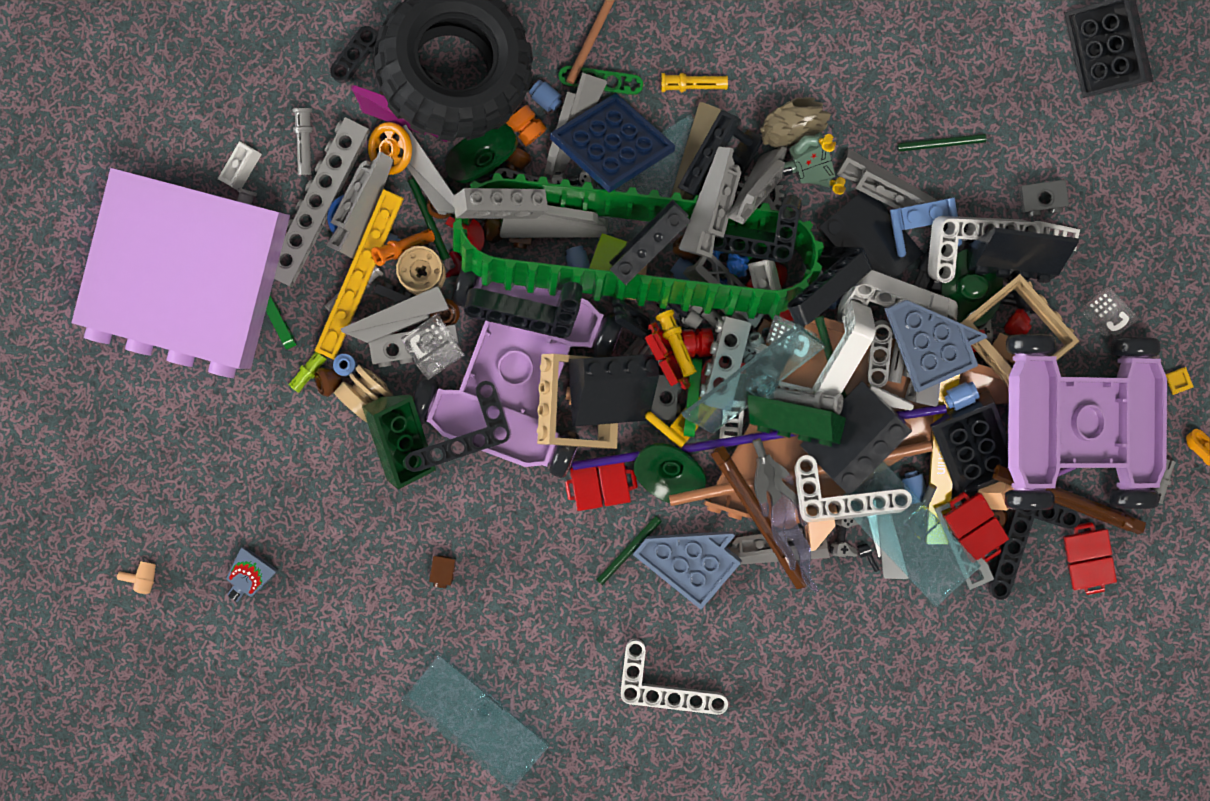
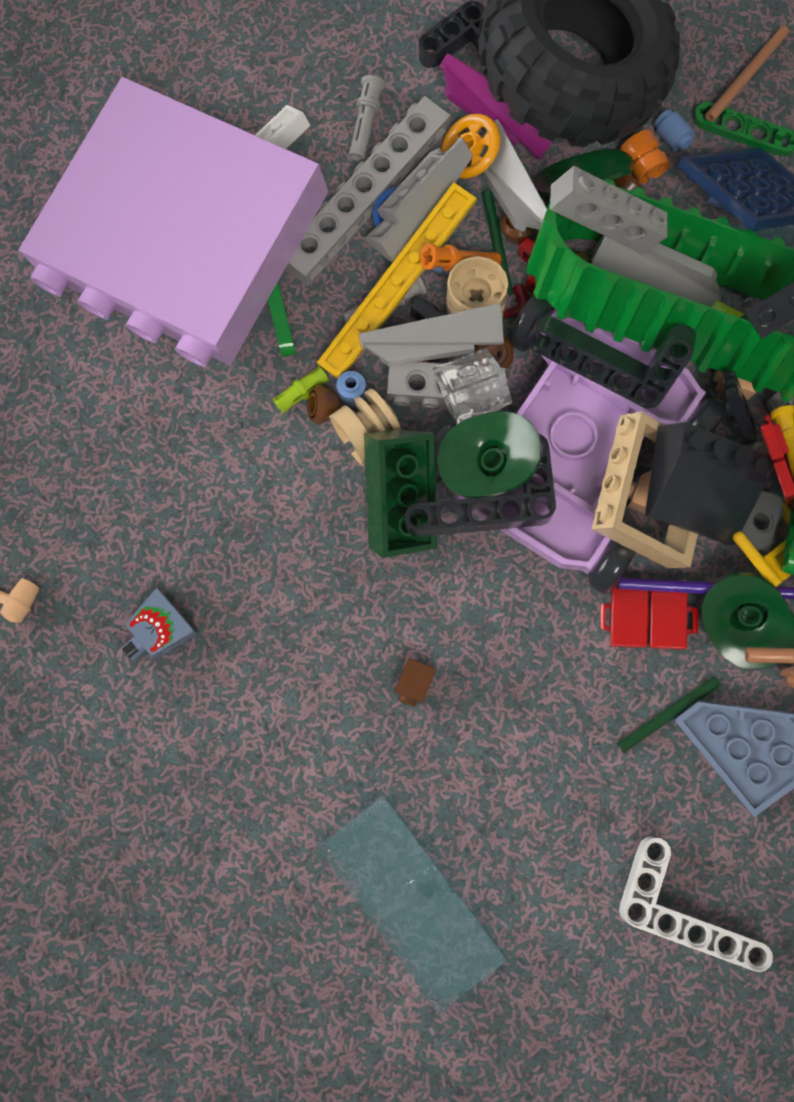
camera: 10 degrees right, 10 degrees down
(454, 404) = (489, 454): none -> dark green hat
(586, 97) = (715, 138): light grey wedge -> none

